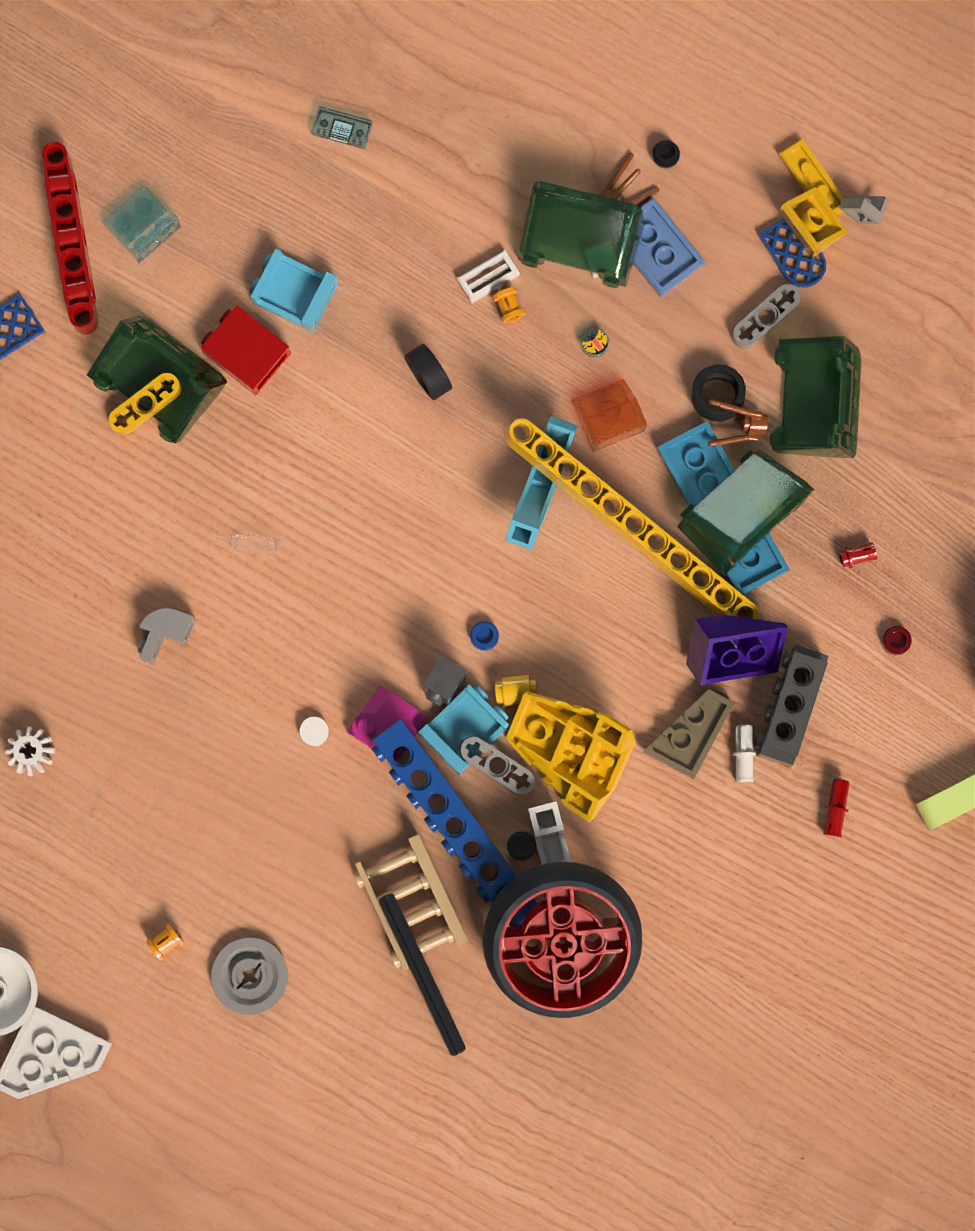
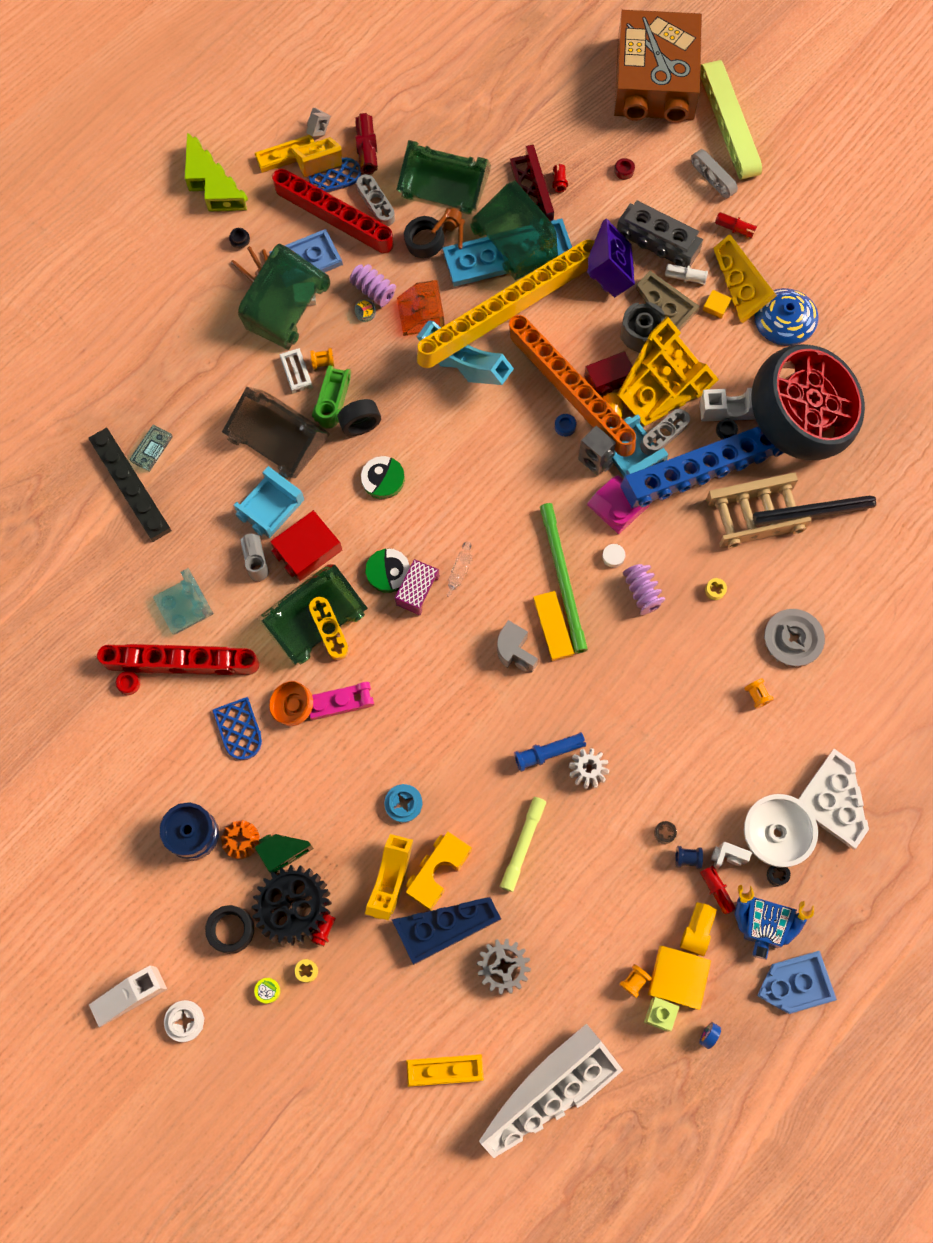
camera: 75 degrees left, 10 degrees down
(33, 187) = (127, 683): none -> red tile
(37, 689) = (539, 754): none -> blue pin
(42, 384) = (291, 703): none -> orange piece
(58, 438) = (341, 701): none -> dark pink plate
(201, 704) = (576, 632): none -> bright green piece
(205, 674) = (553, 626): none -> yellow tile
(219, 496) = (416, 586): none -> magenta panel
(221, 289) = (254, 556): none -> light grey piece
(237, 457) = (387, 570): none -> tile
(273, 776) = (643, 588): none -> lavender piece
(287, 115) = (130, 484): none -> pearl dark grey plate
(303, 869) = (718, 583): none -> light yellow bush
(361, 421) = (382, 477): none -> tile
(394, 275) = (275, 431): none -> clear smoke windscreen
(459, 331) = (331, 397): none -> bright green piece
(526, 642) = (535, 347): none -> orange beam
(565, 677) = (608, 373): none -> dark red brick
(629, 343) = (372, 284): none -> lavender piece
(657, 702) = (638, 323): none -> dark grey brick
(690, 903) = (784, 325): none -> blue dish
(708, 803) = (717, 304): none -> yellow tile
(737, 251) = (333, 211): none -> red beam
(741, 838) = (746, 284): none -> yellow wing
(751, 81) = (207, 176): none -> lime slope
(836, 529) = (537, 179): none -> dark red fence
(850, 282) = (366, 143): none -> dark red piece
(913, 764) = (714, 173): none -> light grey beam

